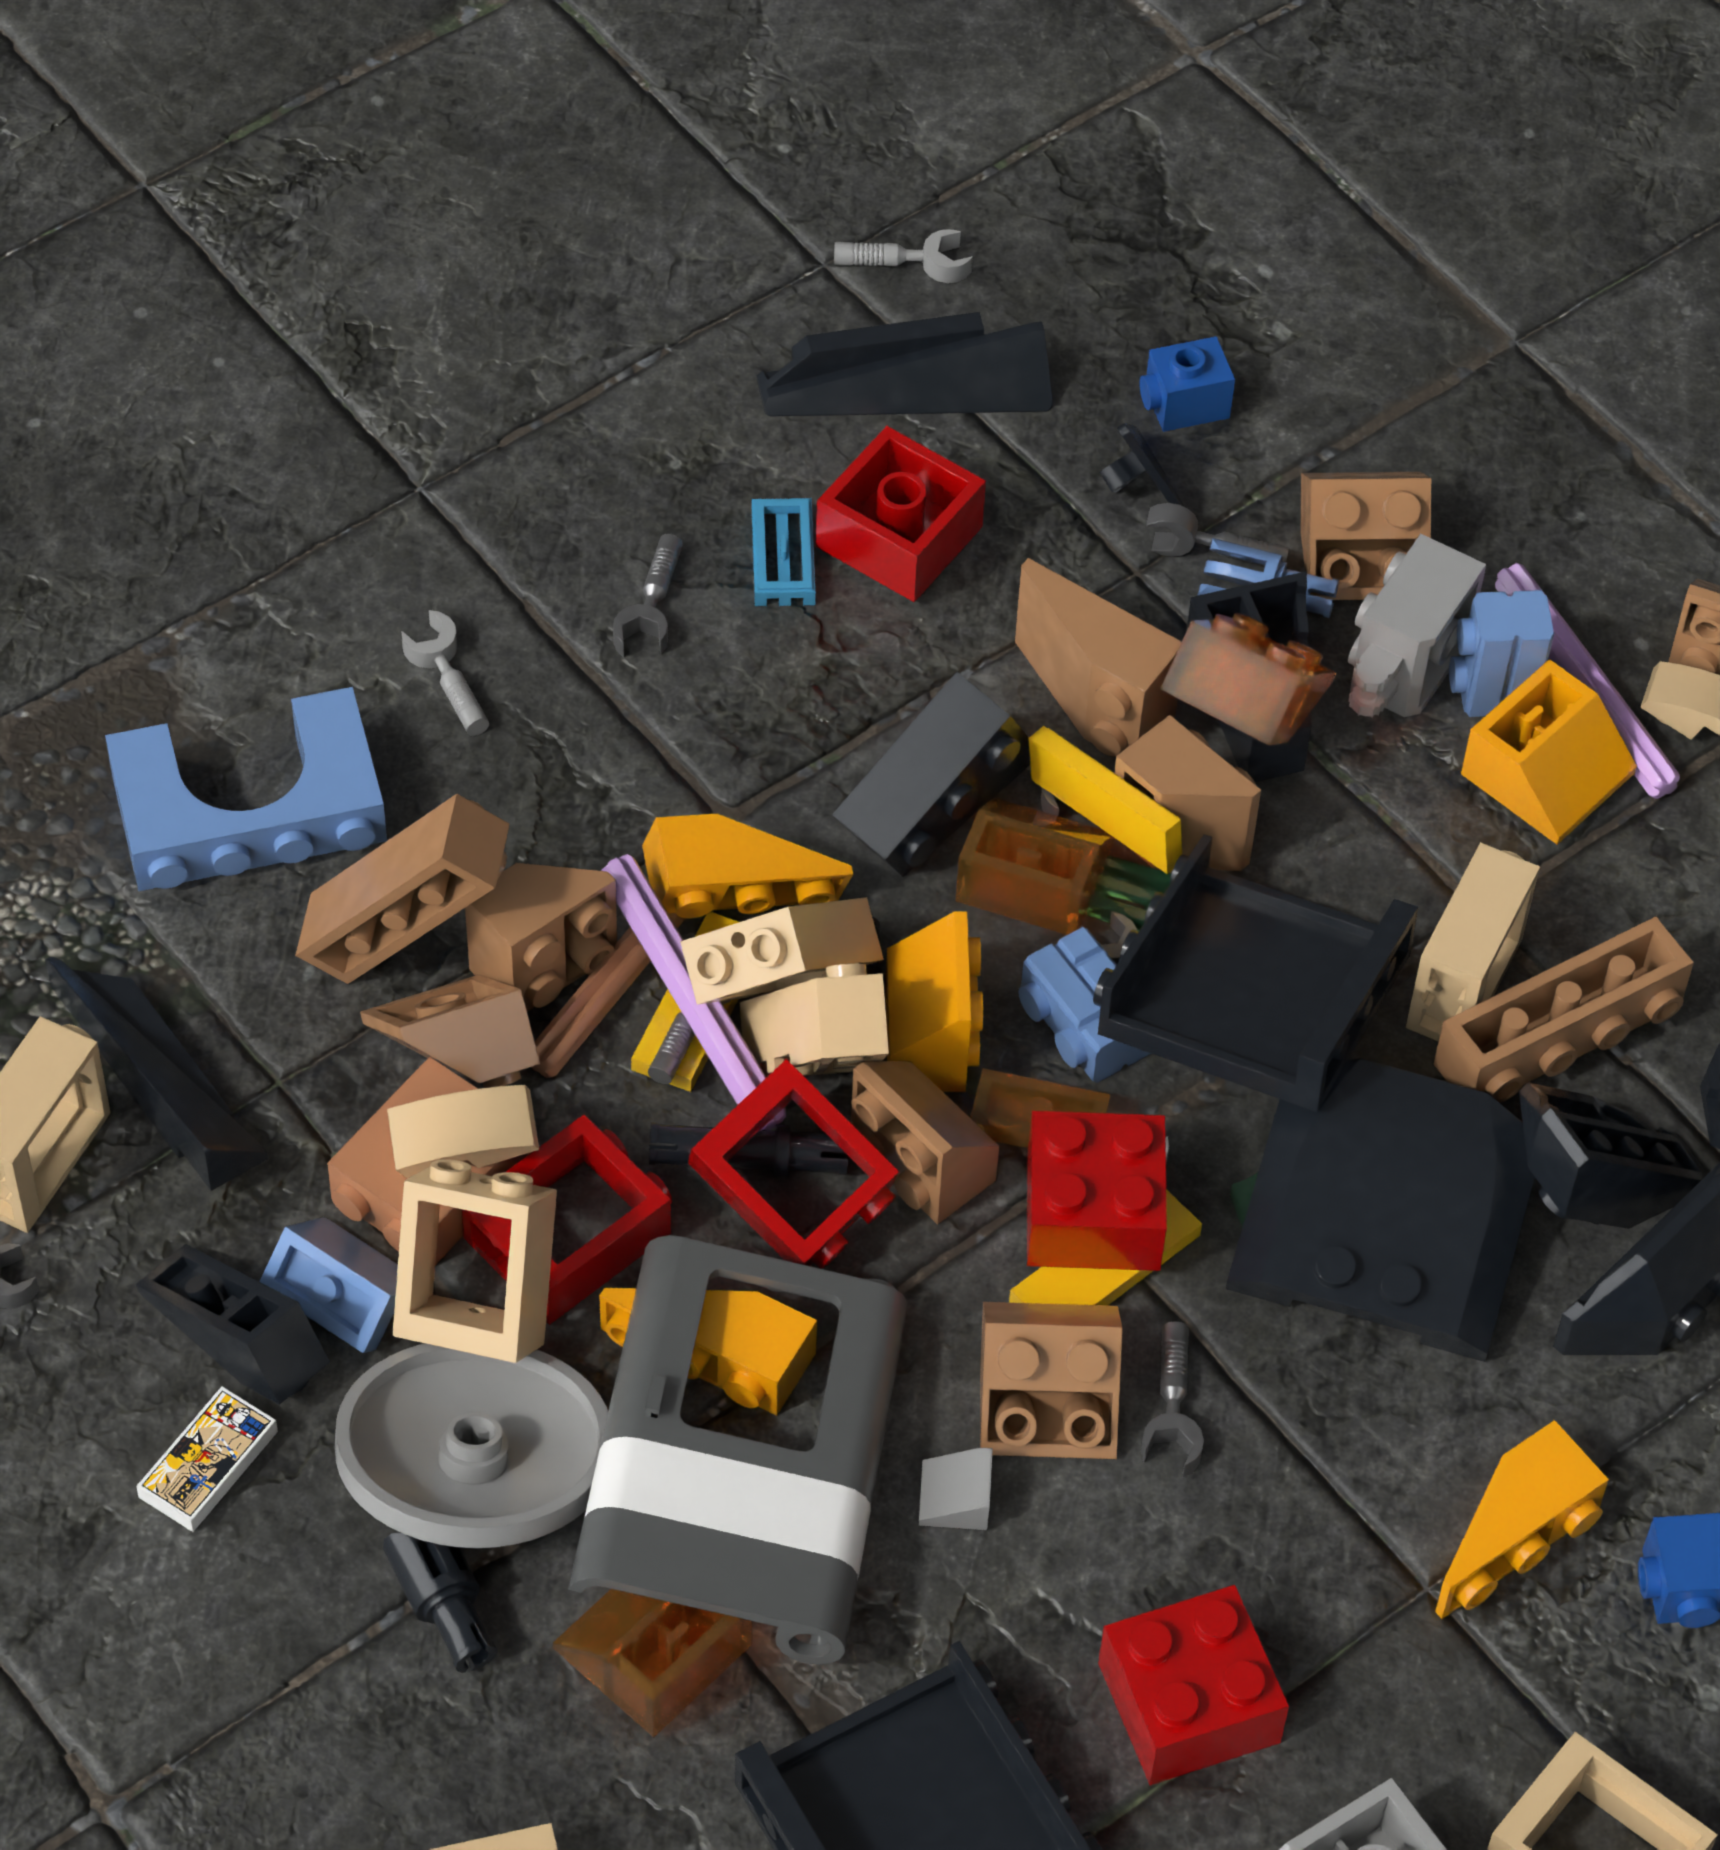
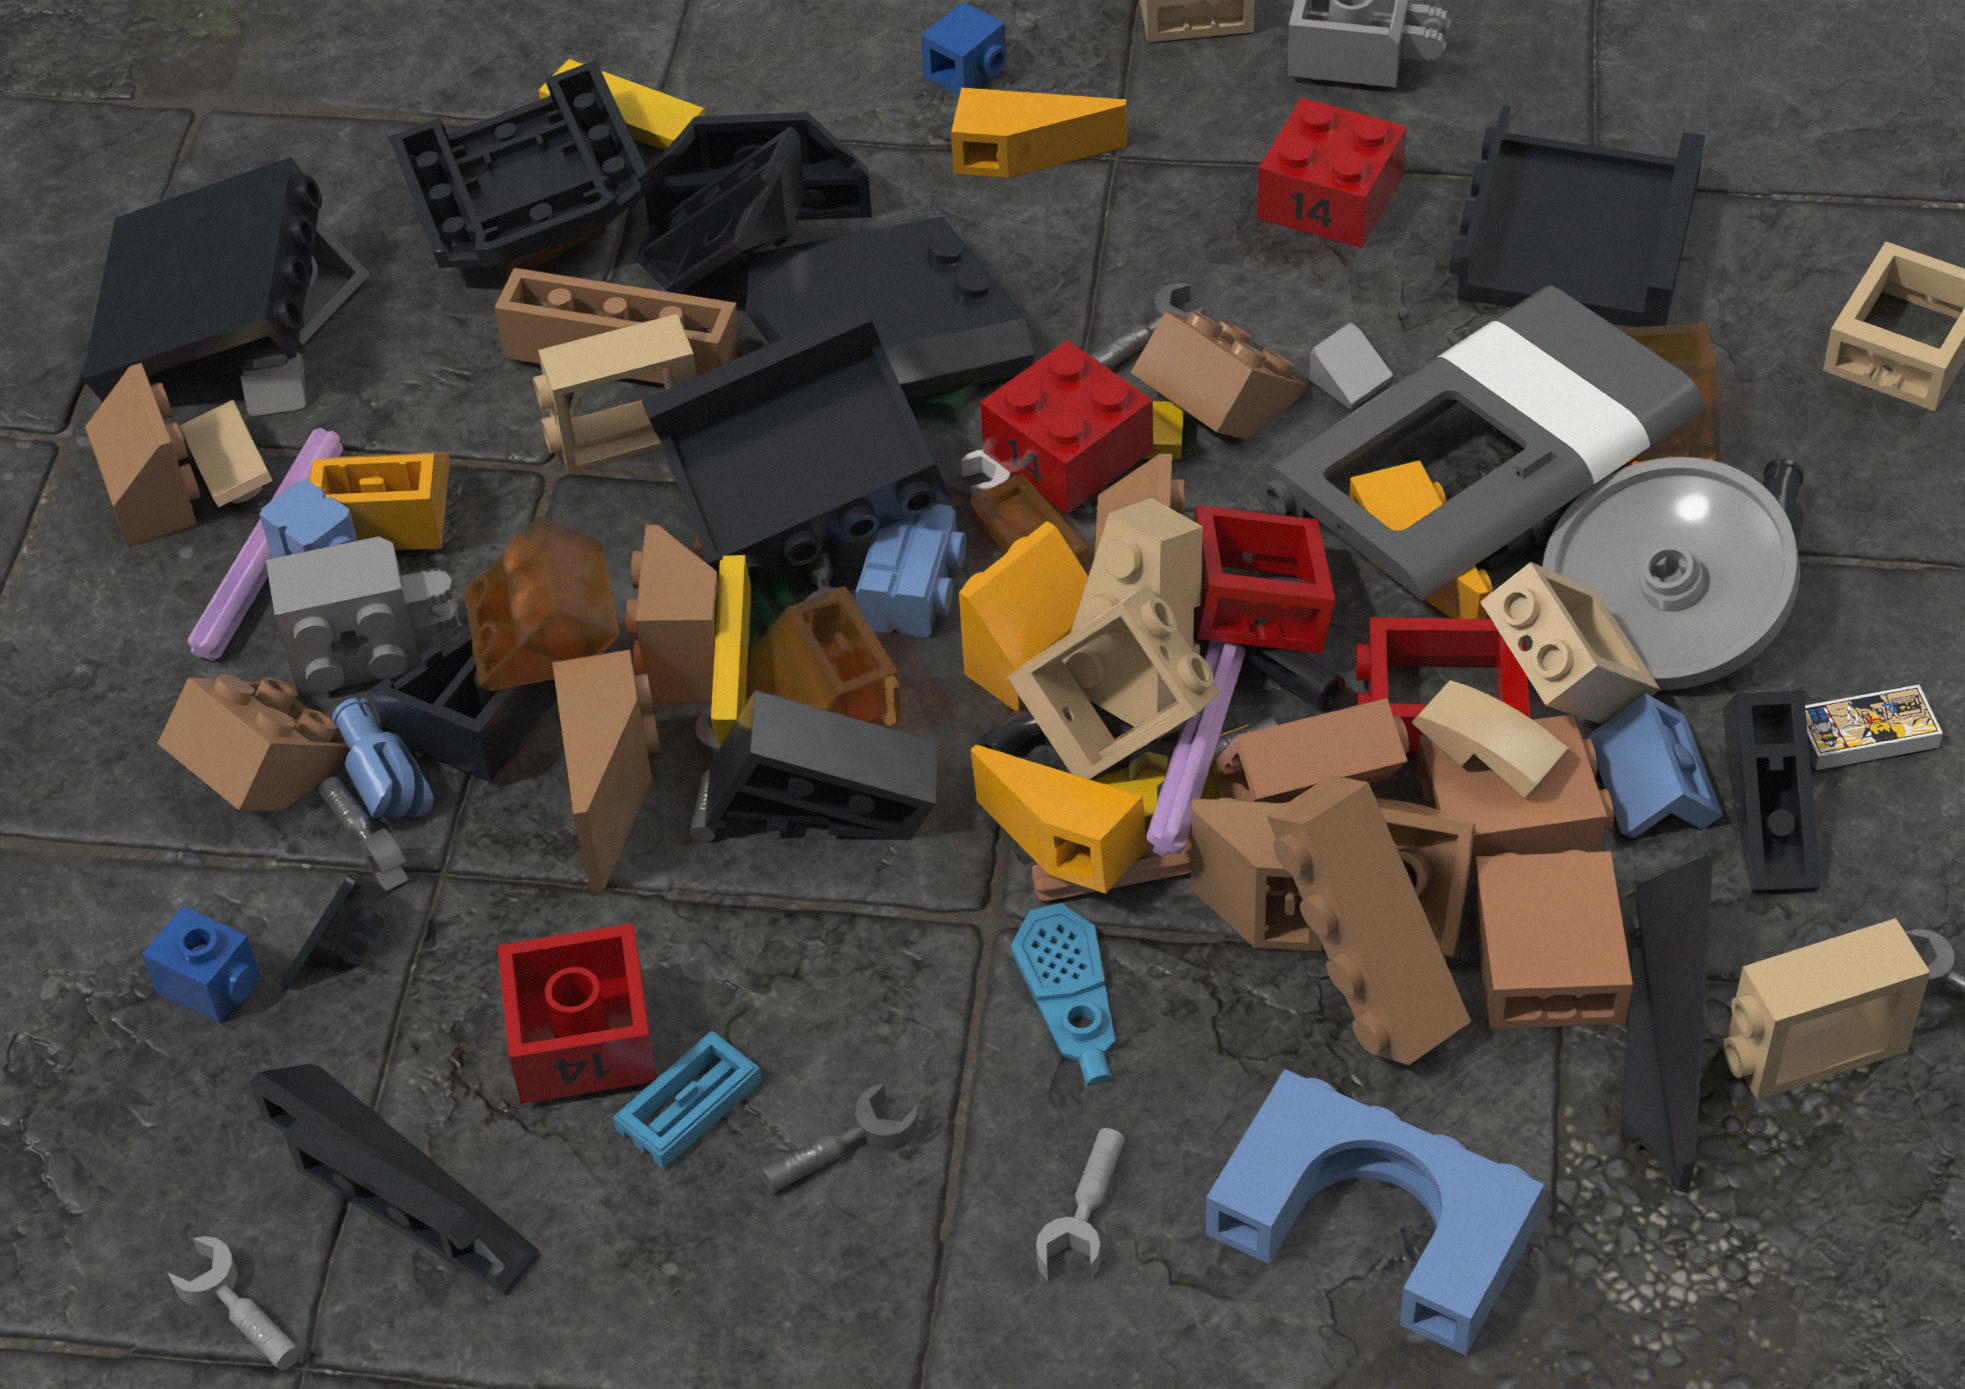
camera: 130 degrees left, 5 degrees down
(297, 1067) = (1551, 940): none -> nougat brick
(586, 1024) = (1294, 756): none -> nougat brick
(611, 807) = (1071, 997): none -> dark azure piece

